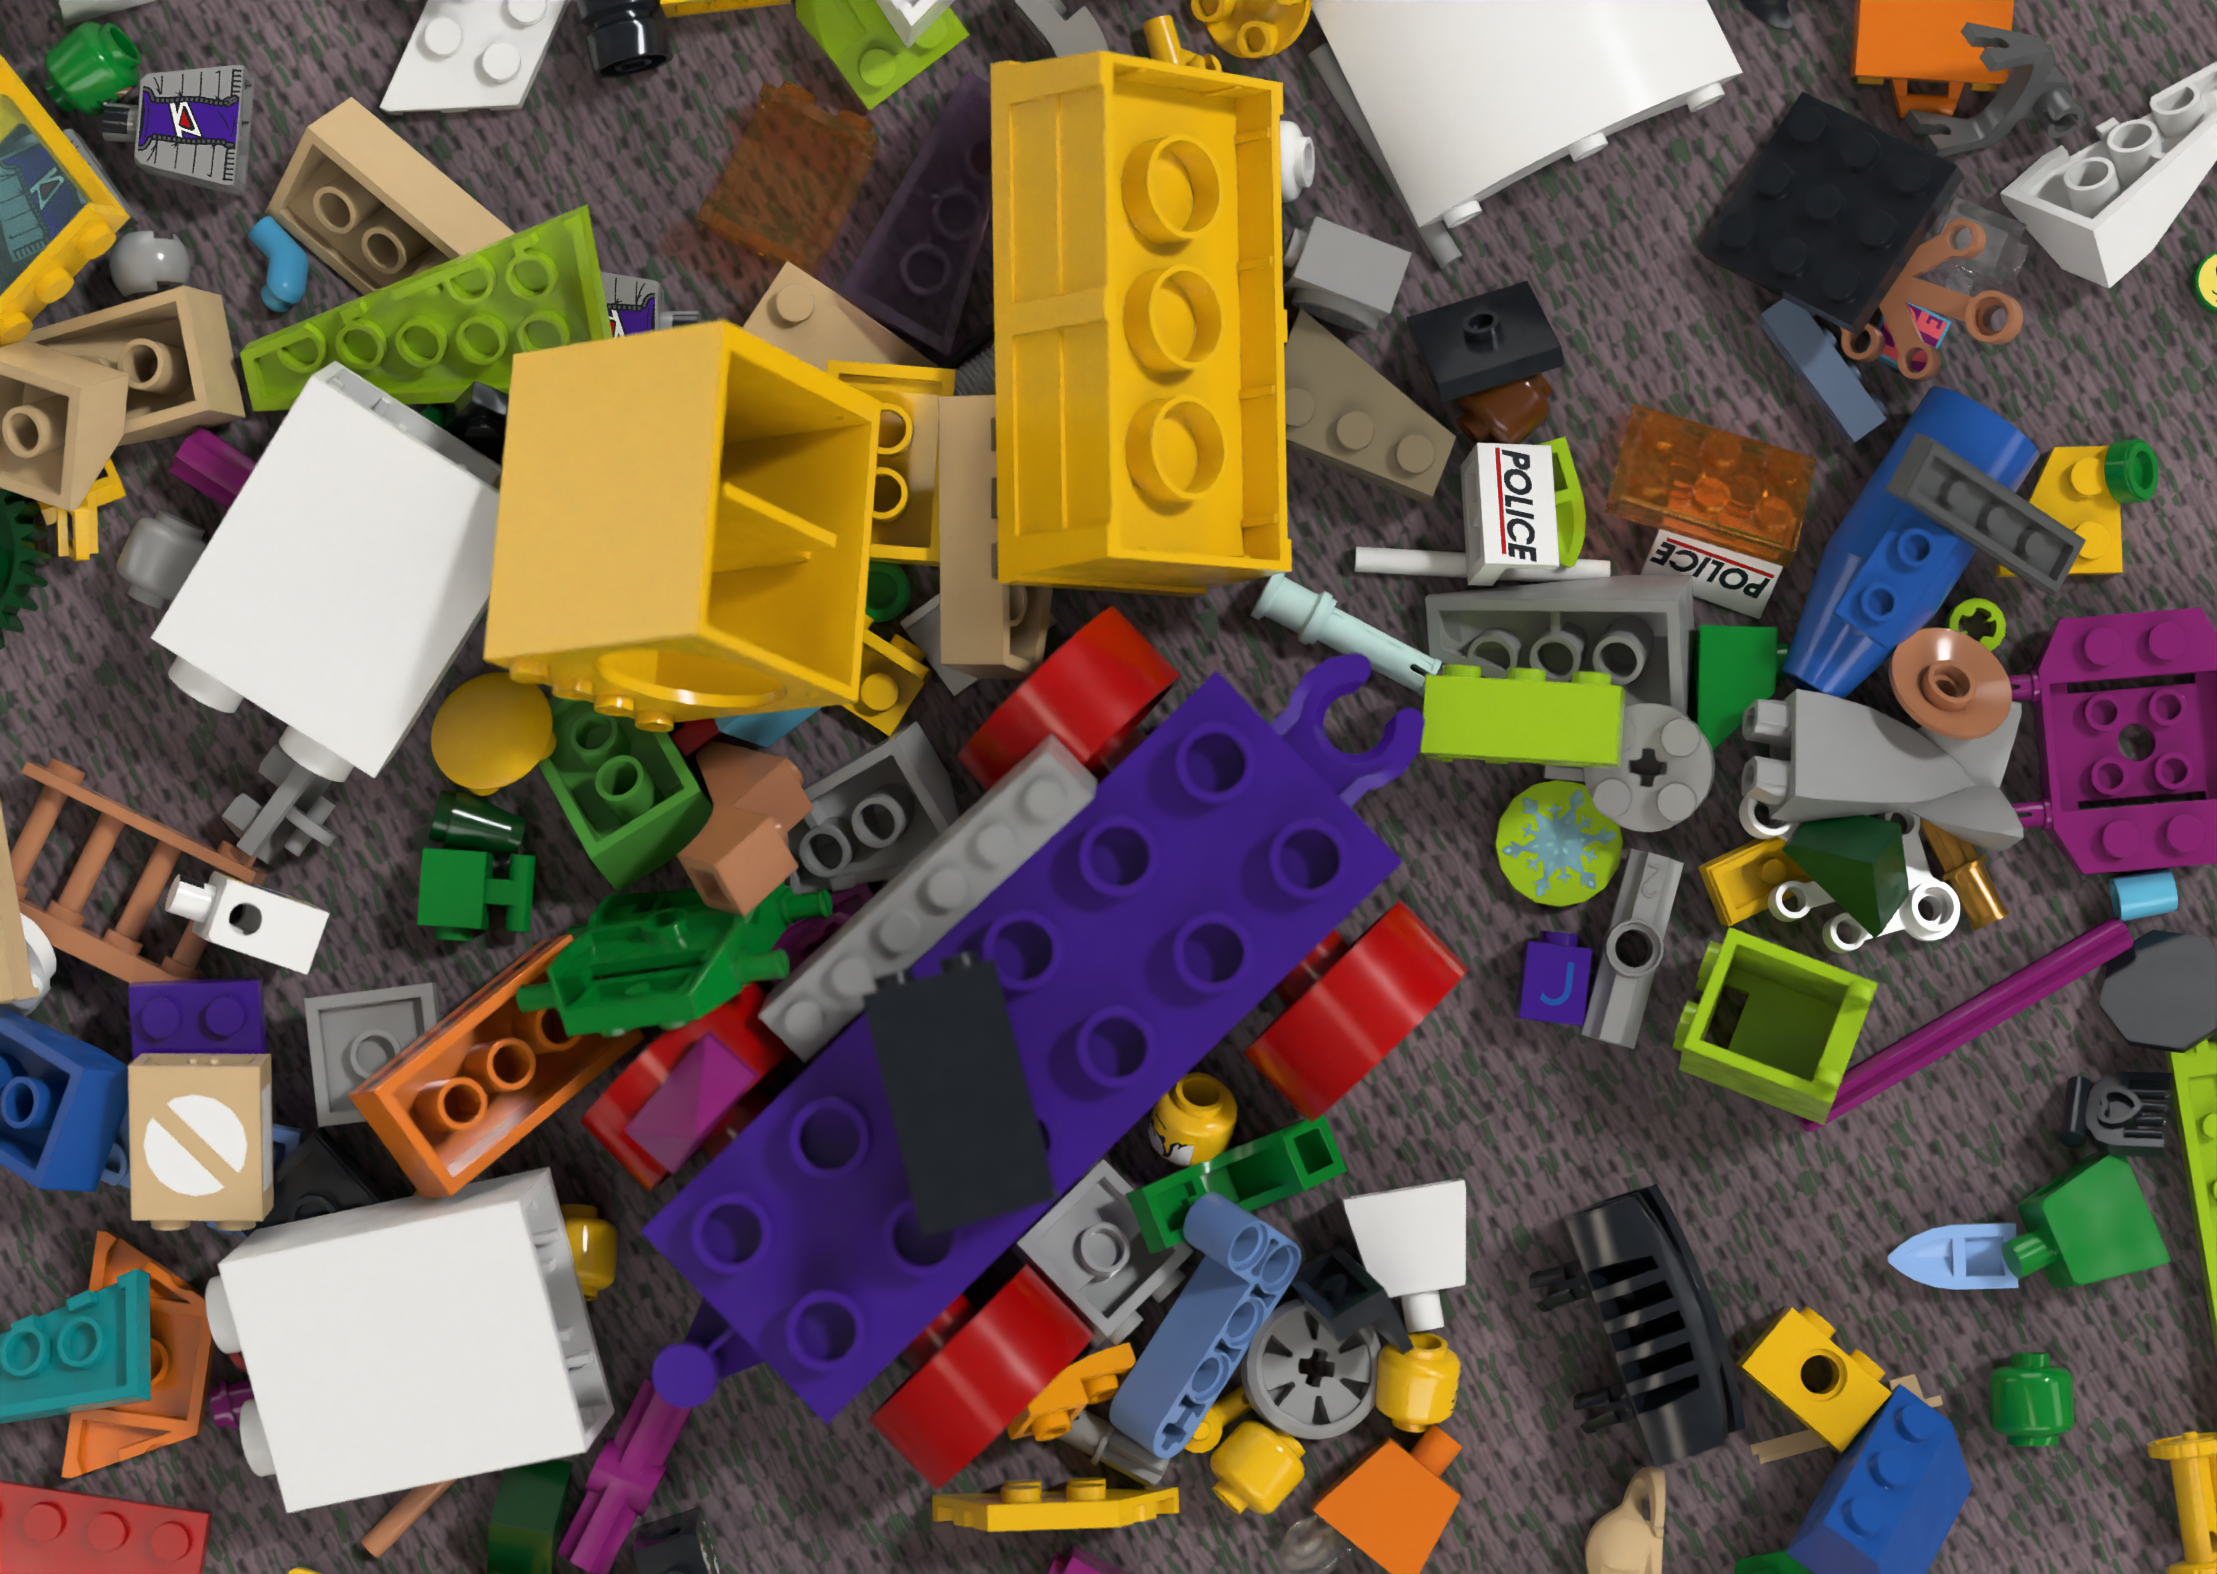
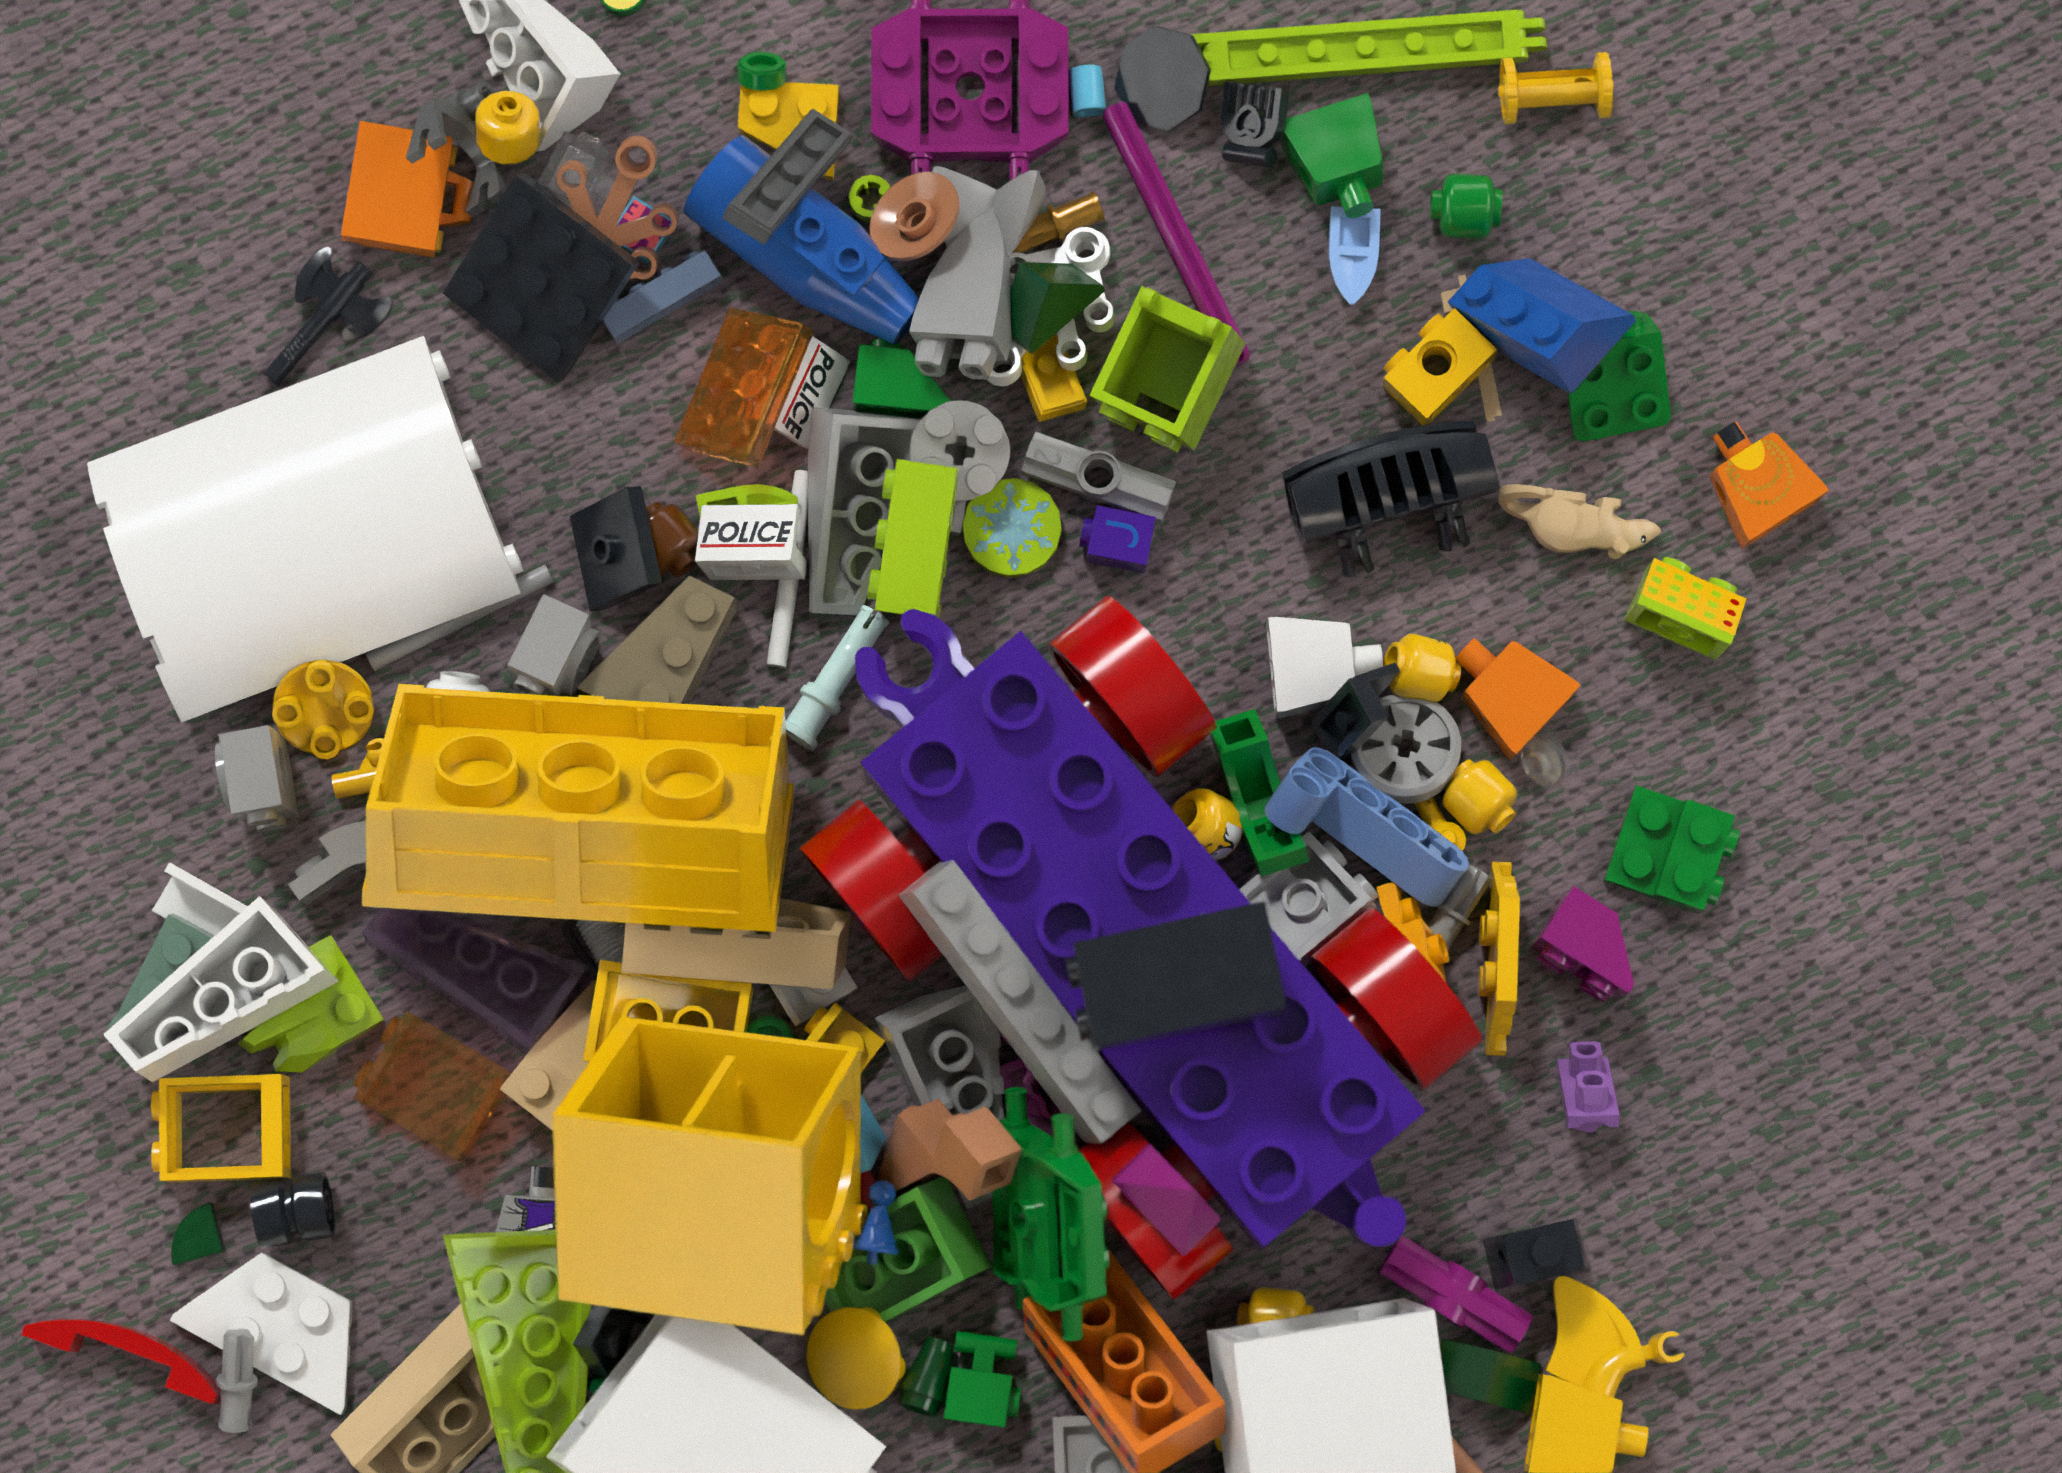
camera: 90 degrees left, 5 degrees down
(642, 744) = (877, 1230): none -> blue piece
(2024, 151) = (507, 127): none -> yellow head

